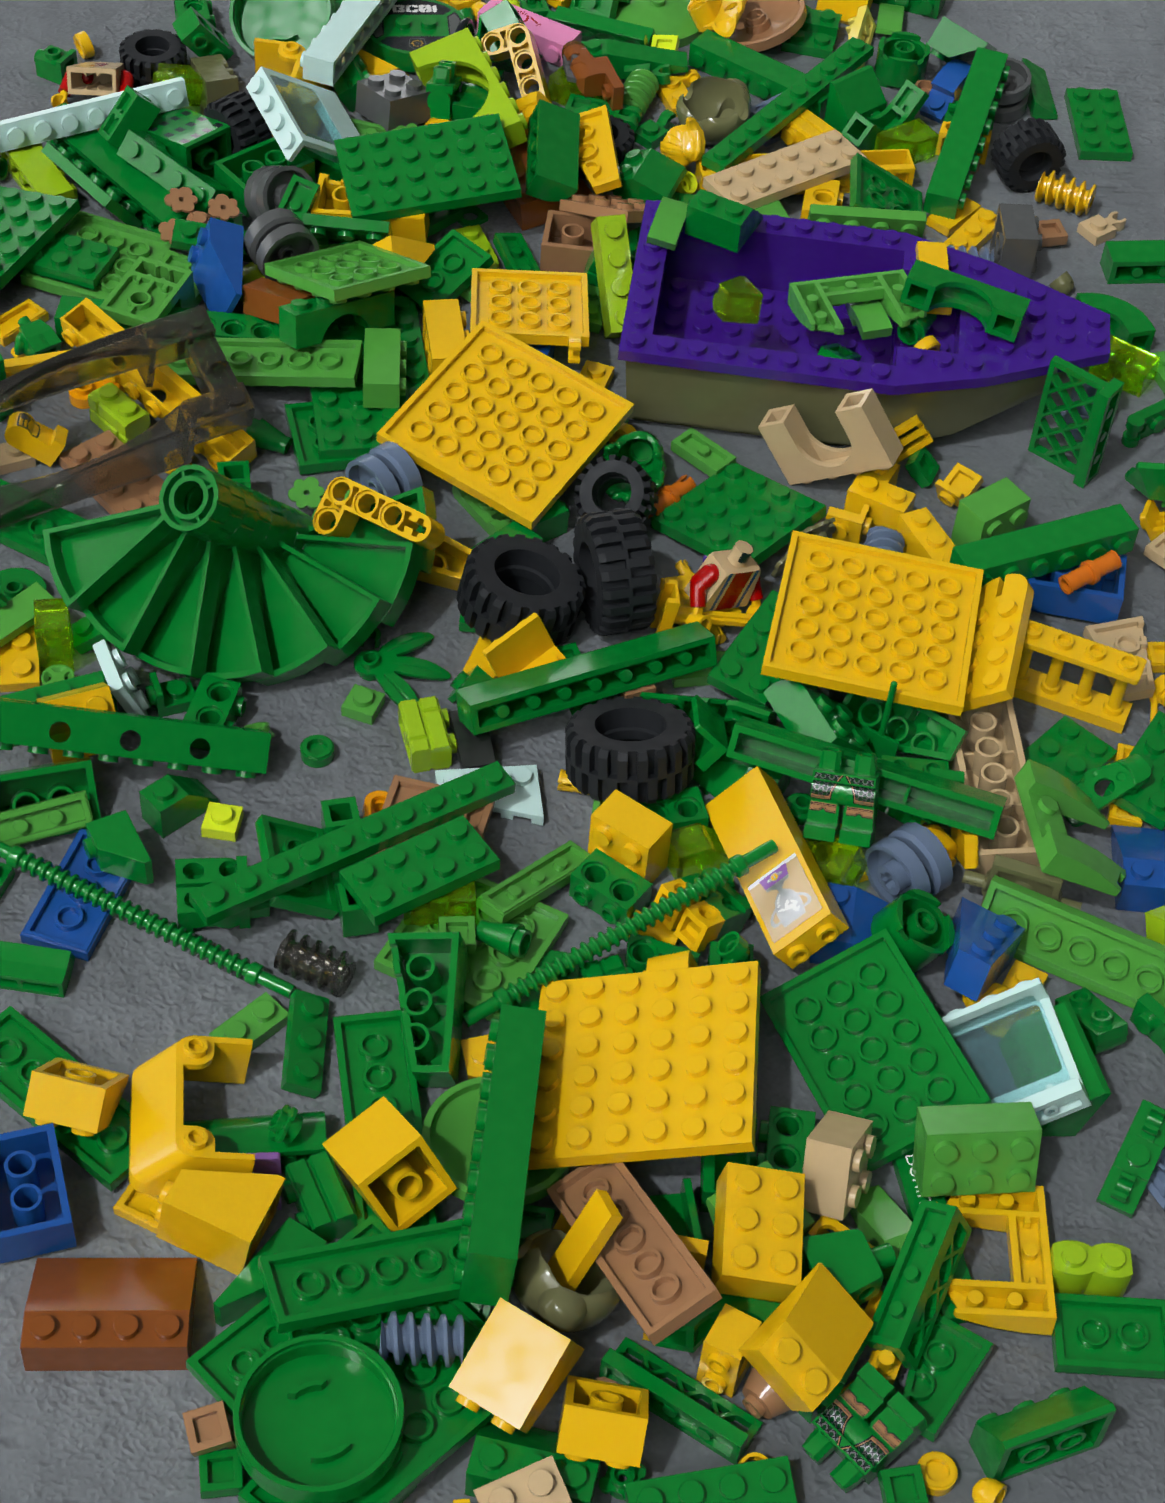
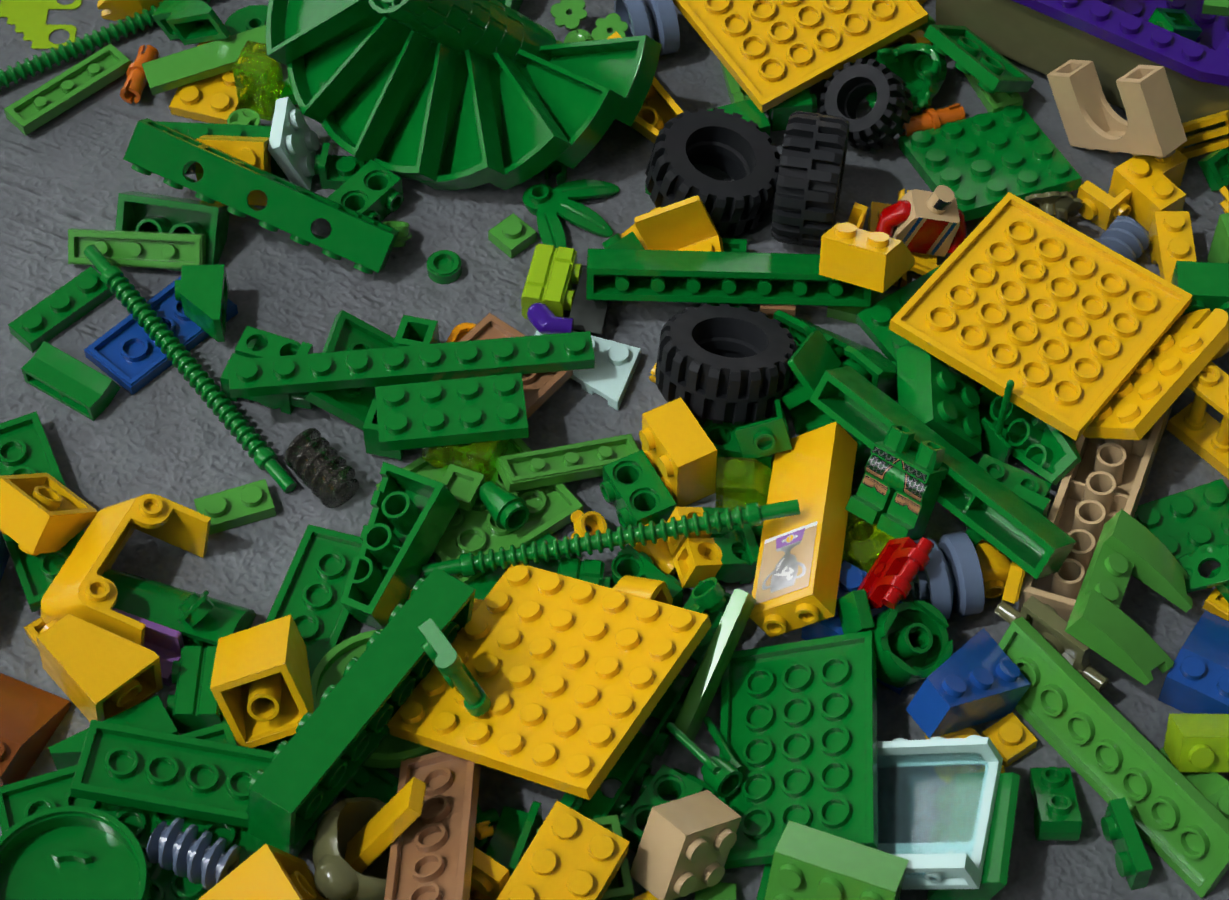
camera: 30 degrees right, 5 degrees up
(174, 802) = (286, 272): green slope -> none
(222, 821) = (319, 305): neon yellow plate -> none
(305, 1044) = (272, 540): green plate -> none
(384, 514) = (578, 33): yellow beam -> none
(445, 767) = (546, 322): none -> dark purple arm
(572, 1082) = (453, 669): none -> green plate
(581, 930) = (591, 519): none -> yellow plate
(687, 432) = (977, 59): none -> green plate
(701, 799) = (765, 436): none -> green bracket
(703, 621) = (863, 257): none -> yellow slope
(767, 1014) = (715, 663): none -> bright green tile
(820, 1094) = (720, 775): none -> green plant
(863, 919) = (855, 612): none -> green tile
(870, 875) = (895, 570): none -> red plate

